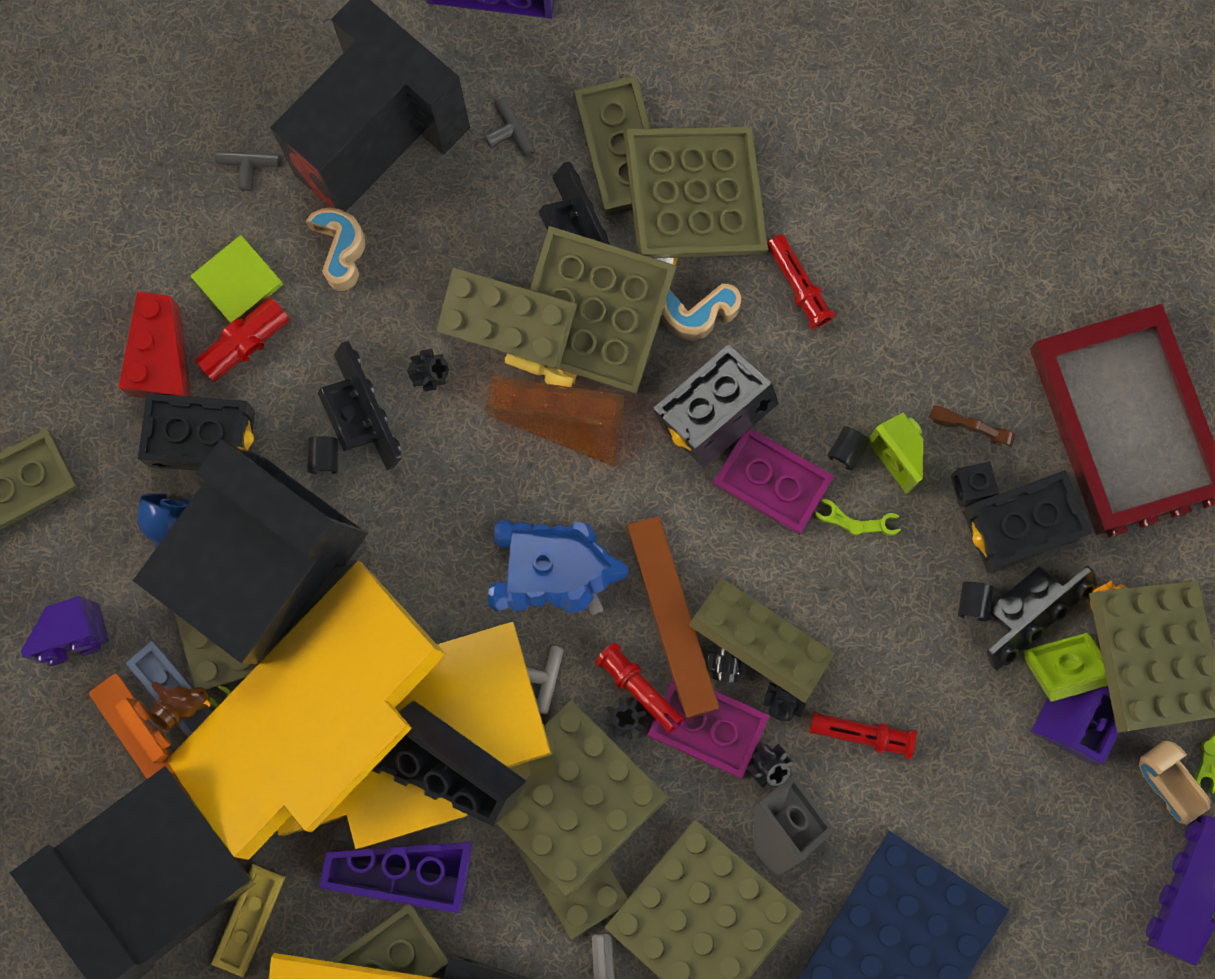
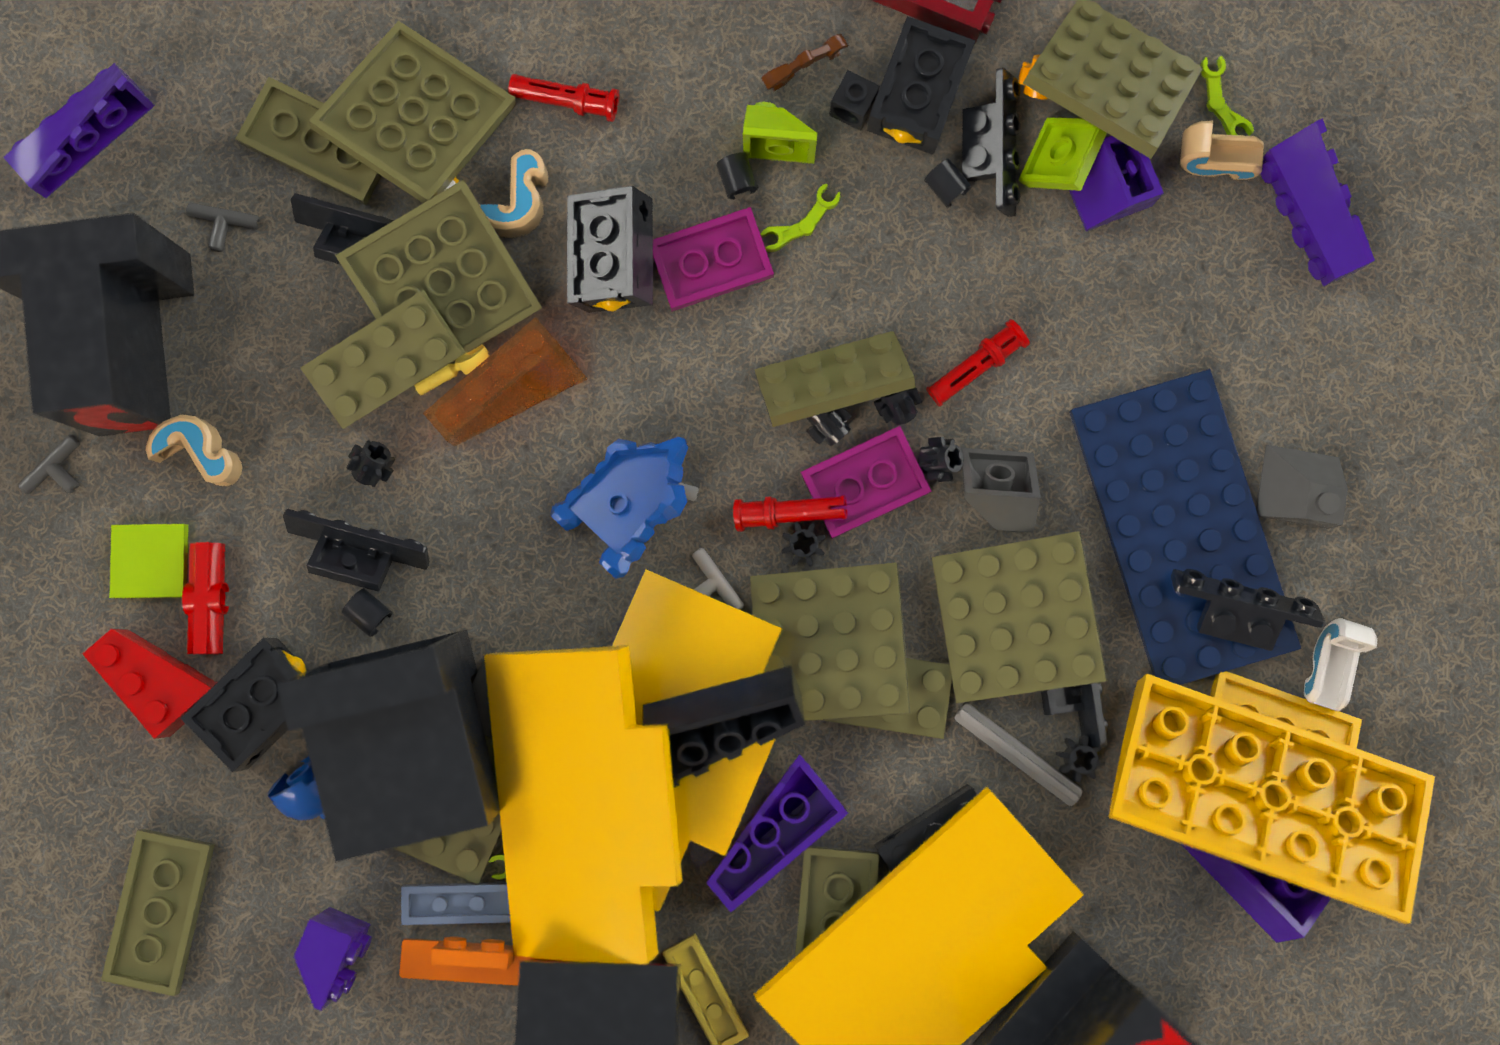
camera: 50 degrees left, 5 degrees up
(177, 704) = (474, 909): reddish brown animal -> none
(672, 618) = (753, 436): dark orange tile -> none

